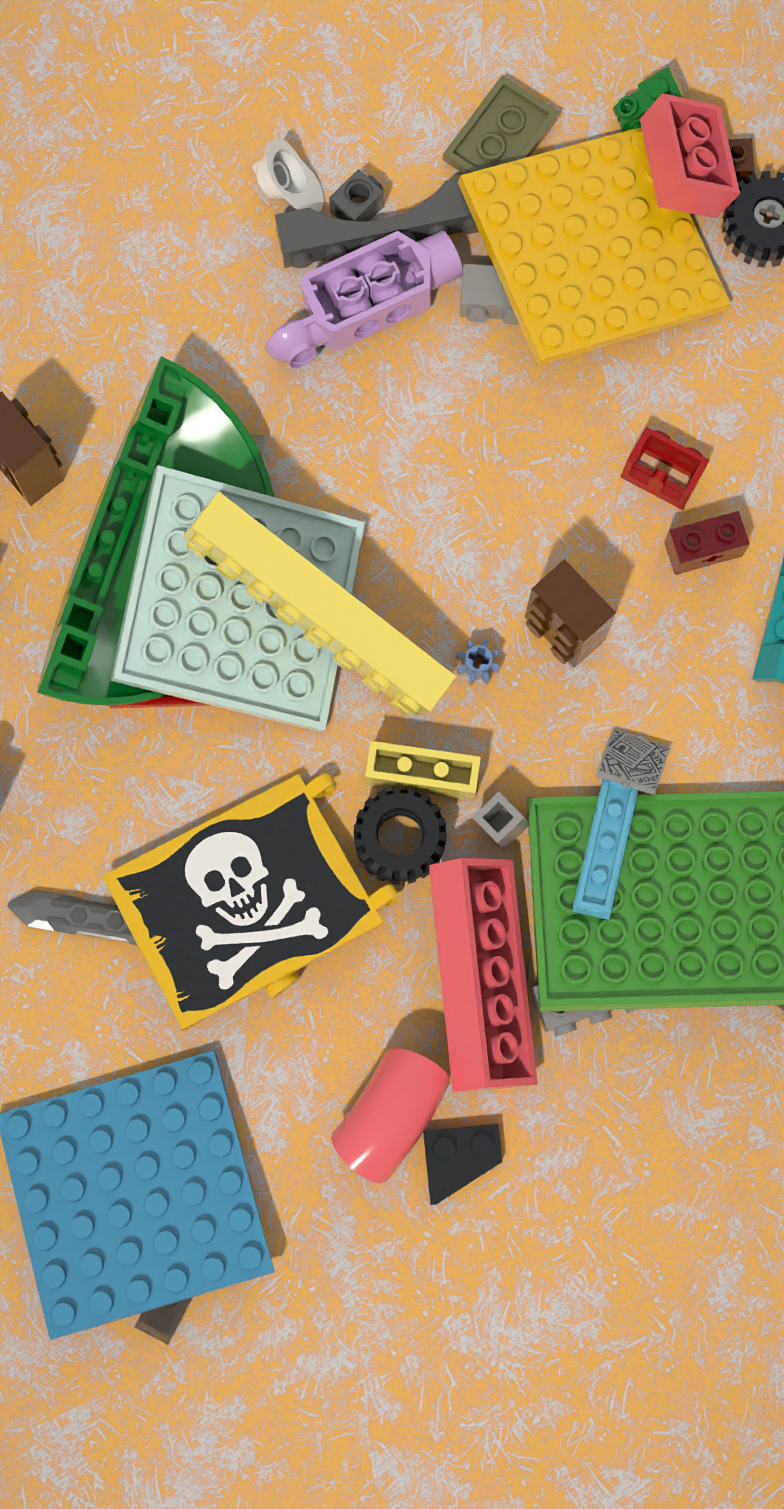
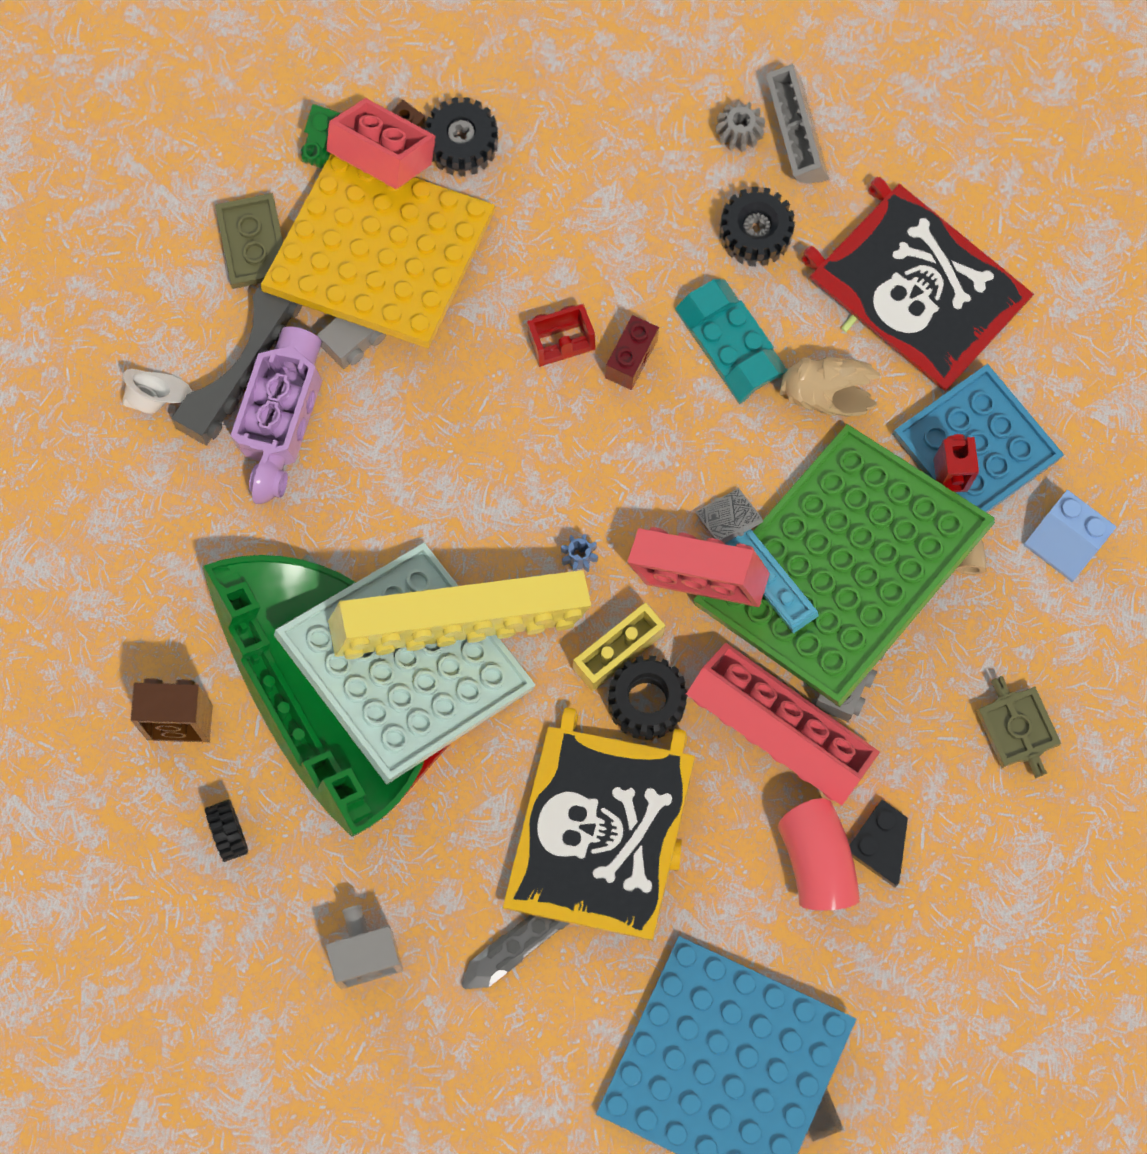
camera: 50 degrees left, 5 degrees down
(357, 185) = (205, 348): dark grey brick -> none
(501, 820) = (694, 627): light grey brick -> none
(556, 774) = (699, 566): none -> coral brick
(568, 614) = (605, 470): reddish brown brick -> none
(679, 1191) = (1018, 727): none -> olive plate

